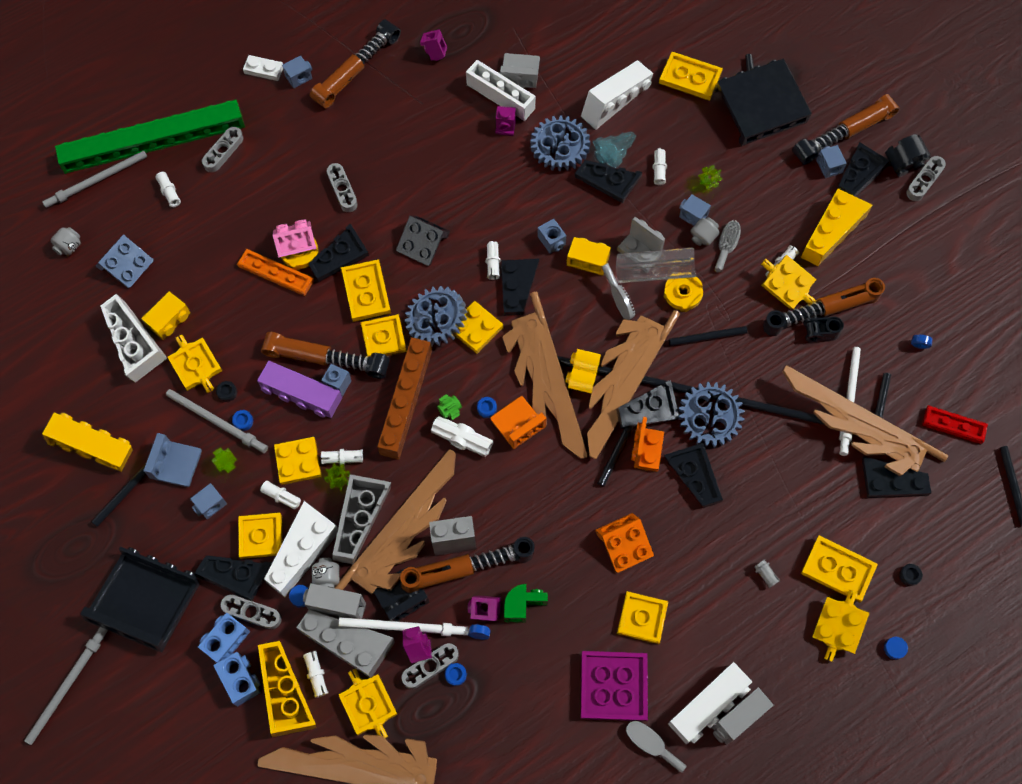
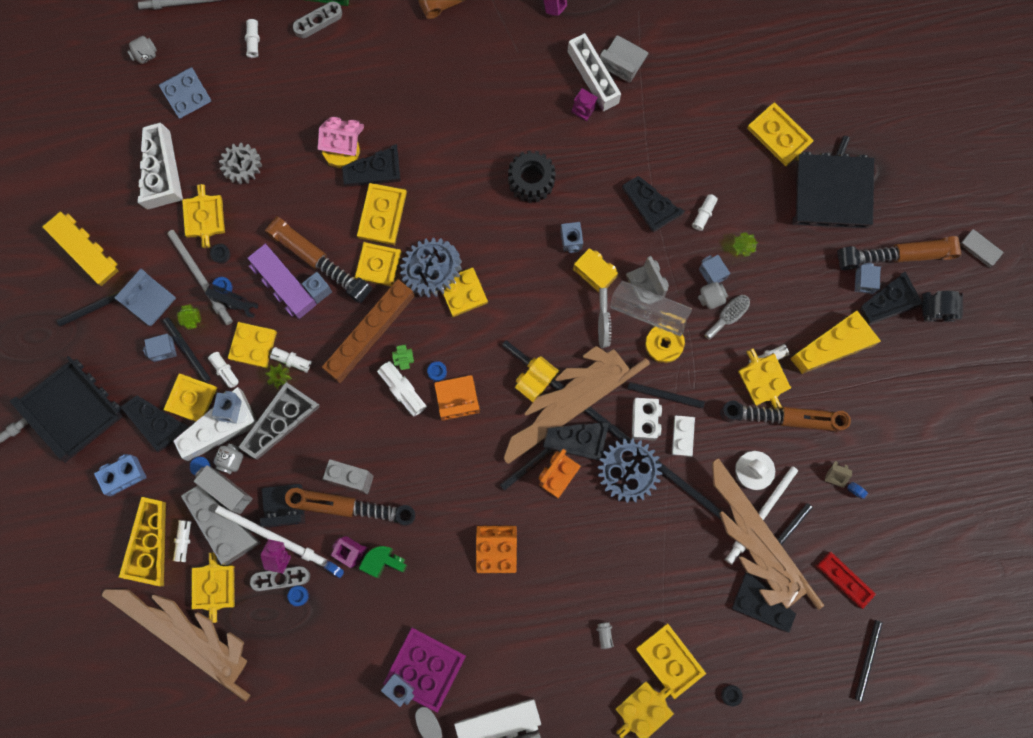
camera: 20 degrees right, 10 degrees up
(166, 315) = (198, 160): yellow brick -> none
(205, 309) = (231, 165): none -> light grey gear
(233, 681) = (110, 515): medium blue brick -> none
(234, 493) = (186, 349): none -> black bar
(247, 603) = (159, 475): light grey beam -> none
(260, 426) = (232, 299): none -> black plate
(275, 272) = (311, 160): orange tile -> none
(308, 528) = (231, 414): none -> sand blue brick
(342, 194) = (403, 97): light grey beam -> none
(392, 542) = (319, 445): medium nougat animal -> none
(421, 239) = (454, 186): black bracket -> none
(484, 187) = (534, 162): none -> black tyre
(493, 260) = (507, 236): white axle -> none
(517, 283) = (519, 267): black wing -> none
(545, 371) = (503, 361): medium nougat animal -> none
(546, 135) = (614, 136): sand blue gear -> none
(591, 718) = (389, 688): none -> sand blue brick
(613, 148) = (671, 175): clear light blue rock -> none
(615, 93) = (699, 122): white wedge -> none
(642, 617) = (479, 622): yellow tile -> none
(697, 364) = (640, 418): none -> white brick
(697, 474) = (590, 517): black wing -> none
(742, 364) = (683, 436): none -> white plate
(819, 330) = (771, 436): black piece -> none
(822, 365) = (755, 470): none -> white tile
(898, 335) = (838, 475): none -> dark tan tile
(913, 97) = (981, 248): none -> light grey tile
(925, 186) = (953, 328): light grey beam -> none

